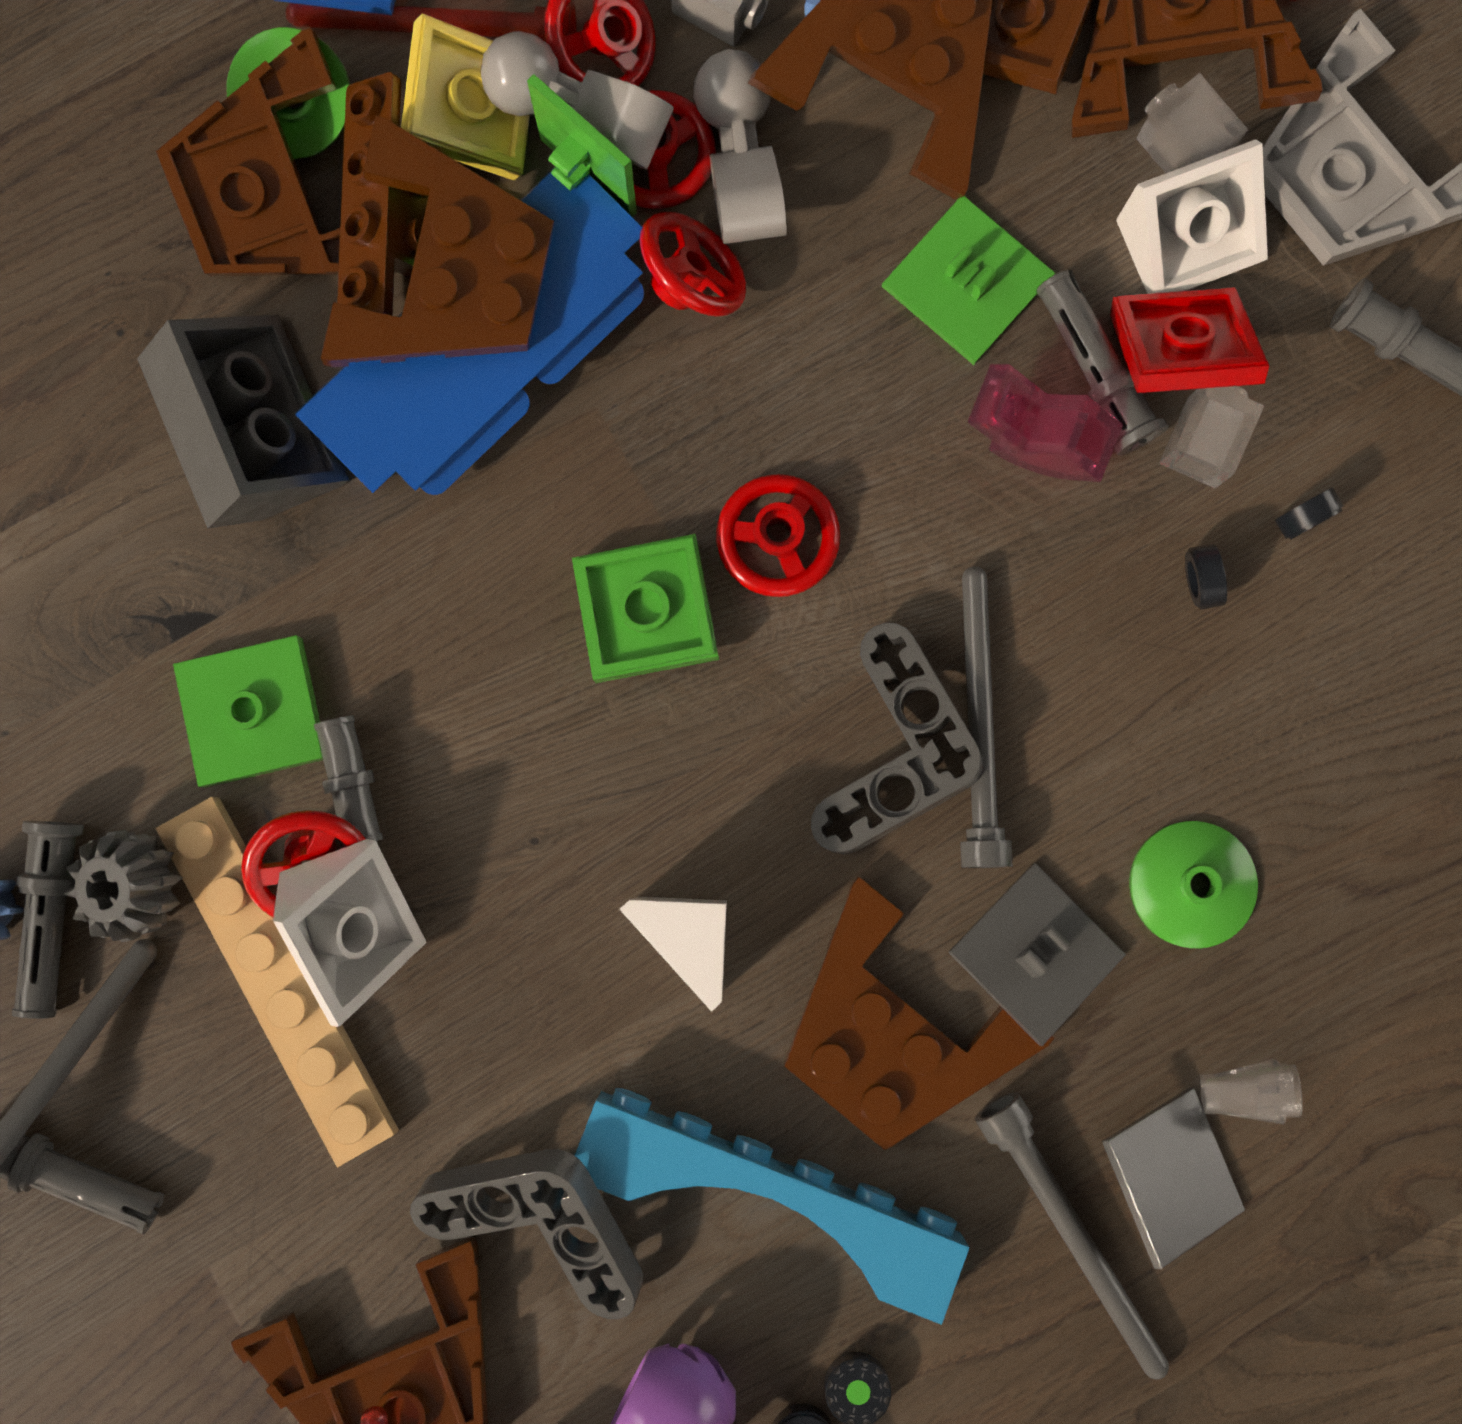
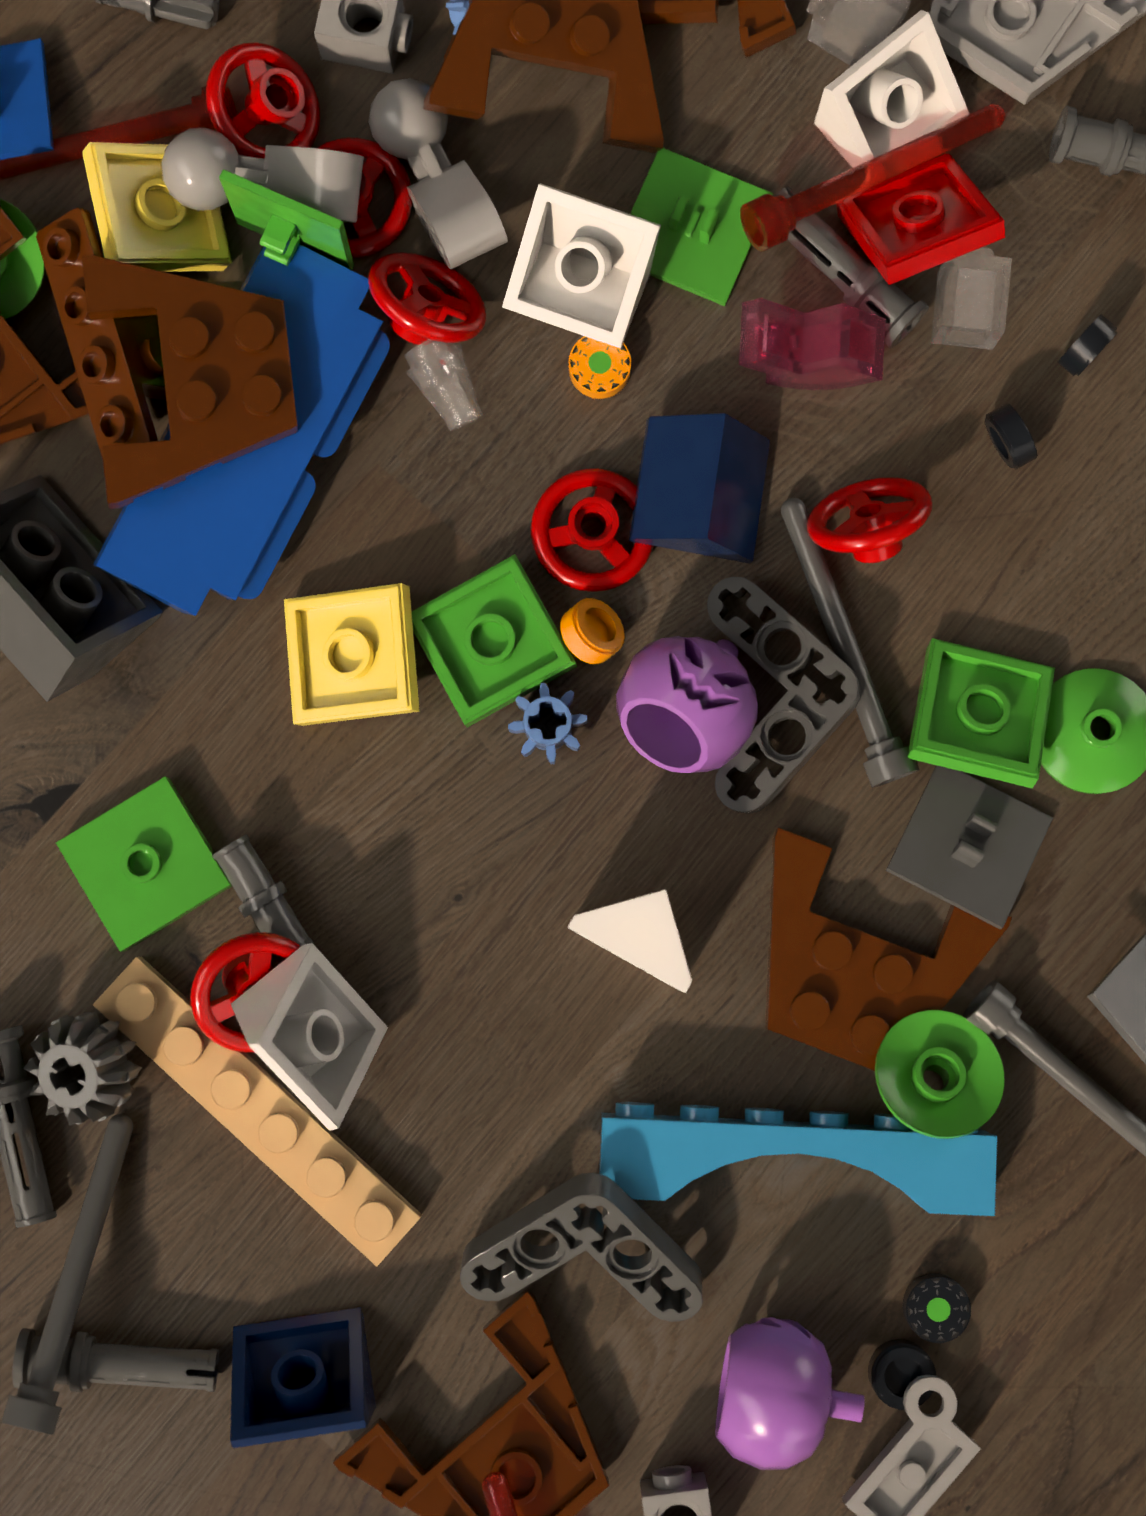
camera: 20 degrees left, 0 degrees up
(227, 1252) = (300, 1378): none -> dark blue slope
(509, 578) = (351, 655): none -> light yellow plate
(662, 690) = (532, 715): none -> medium blue gear
(684, 347) = (445, 381): none -> clear cone
(744, 631) = (592, 631): none -> light orange tile
(810, 730) = (687, 703): none -> medium lavender piece
(836, 382) = (599, 368): none -> light orange tile
(850, 280) = (581, 265): none -> white slope
(893, 527) = (700, 486): none -> dark blue slope
(963, 1164) = (962, 1058): none -> bright green dish
(1044, 294) = (771, 218): none -> clear red piece
(1046, 620) = (873, 526): none -> red piece
(1090, 832) = (981, 713): none -> bright green plate

